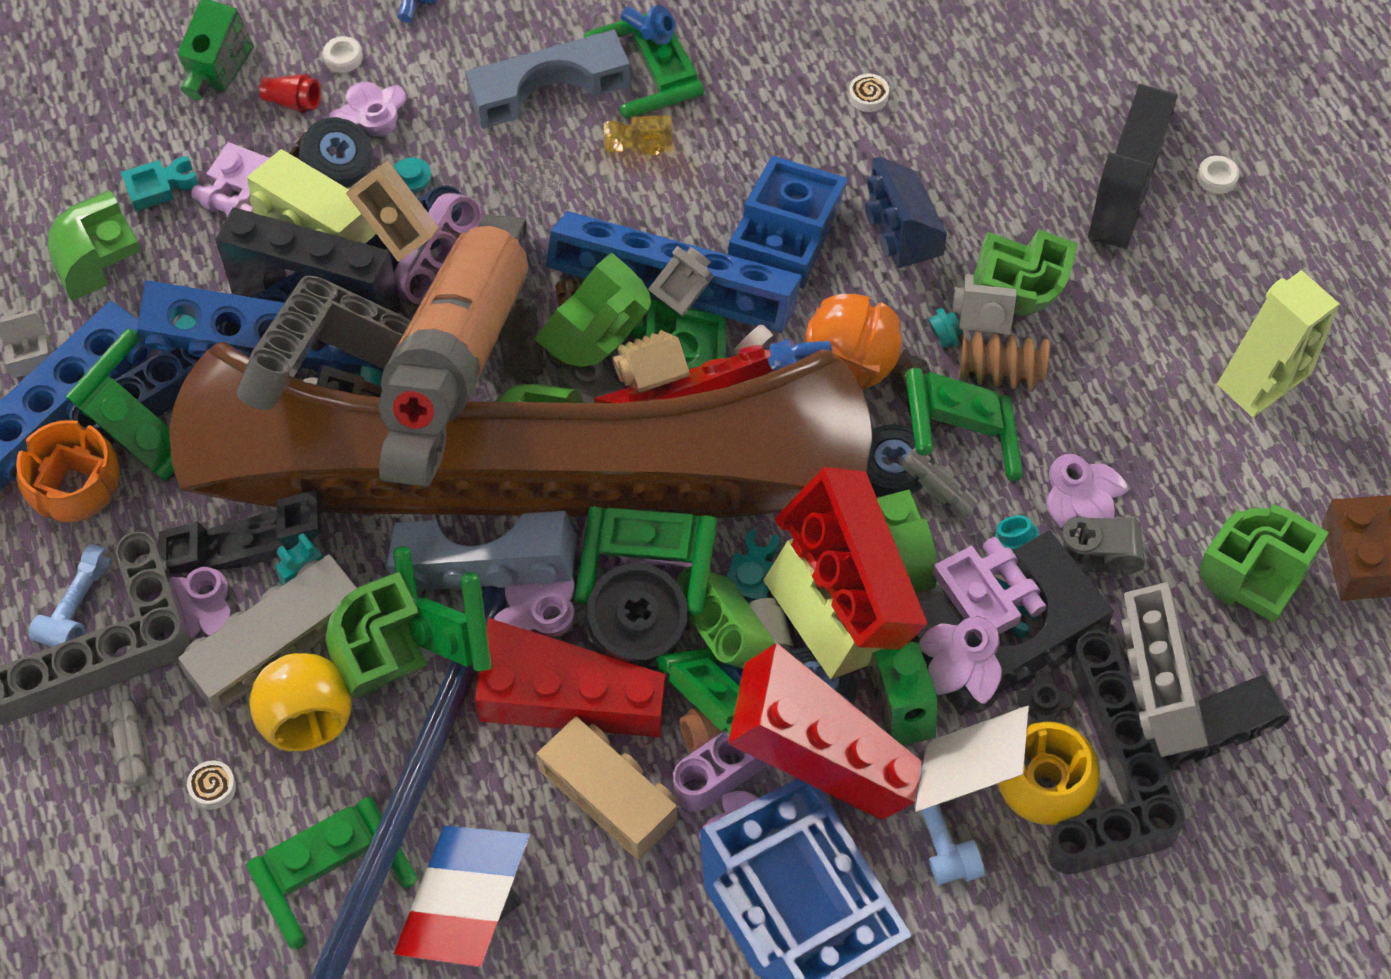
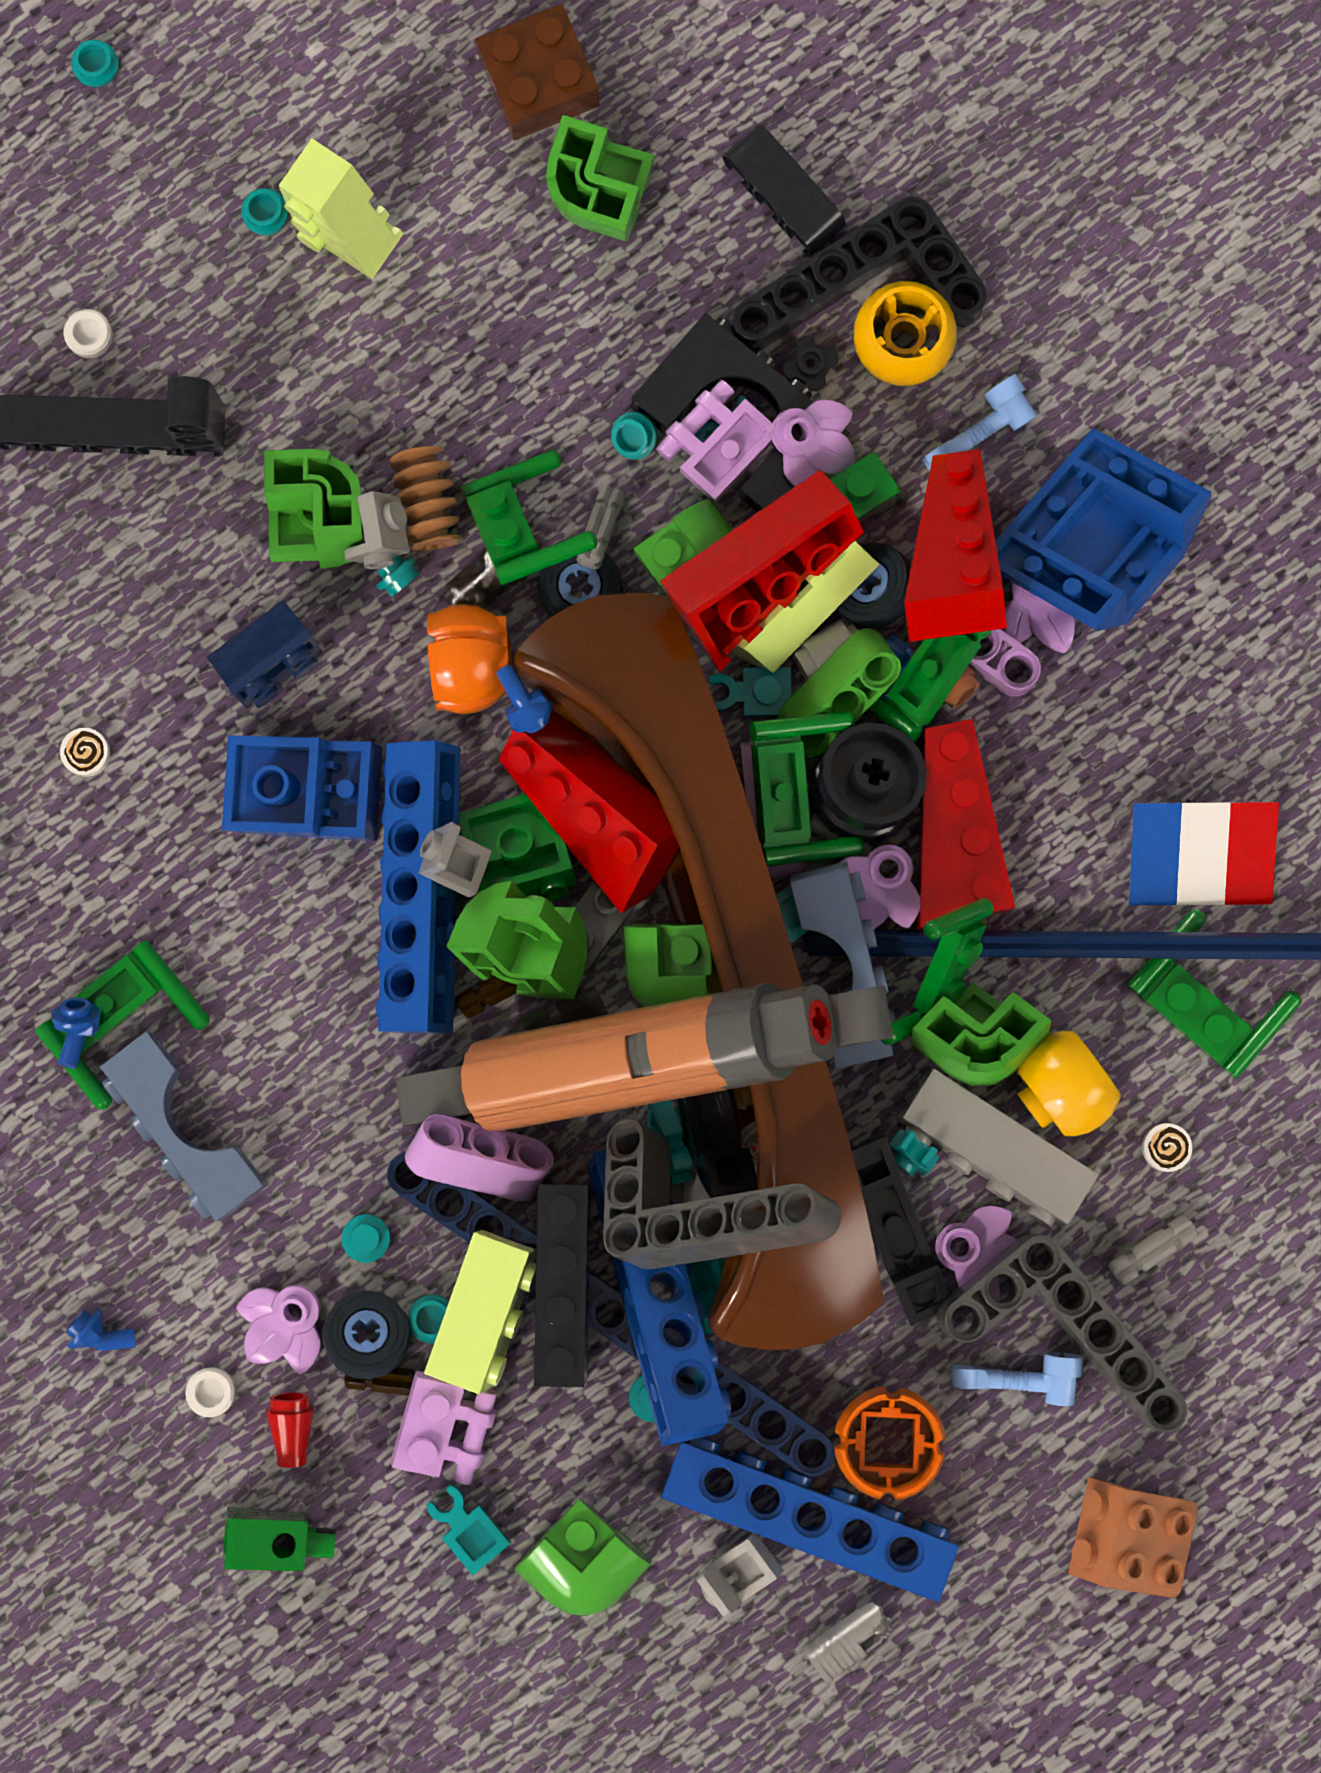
camera: 105 degrees left, 25 degrees up
(121, 413) = (805, 1412): green plate -> none
(392, 210) = (488, 1198): tan brick -> none
(608, 787) = (1046, 753): tan brick -> none
(645, 135) = (233, 979): clear yellow plate -> none
(651, 361) = (585, 849): tan brick -> none
(758, 336) = (484, 773): white tile -> none
(973, 758) = (924, 401): white sticker -> none
(1084, 497) = (561, 377): lavender plate -> none
(1105, 544) = (619, 342): dark grey piece -> none
(1164, 670) = (765, 244): light grey brick -> none

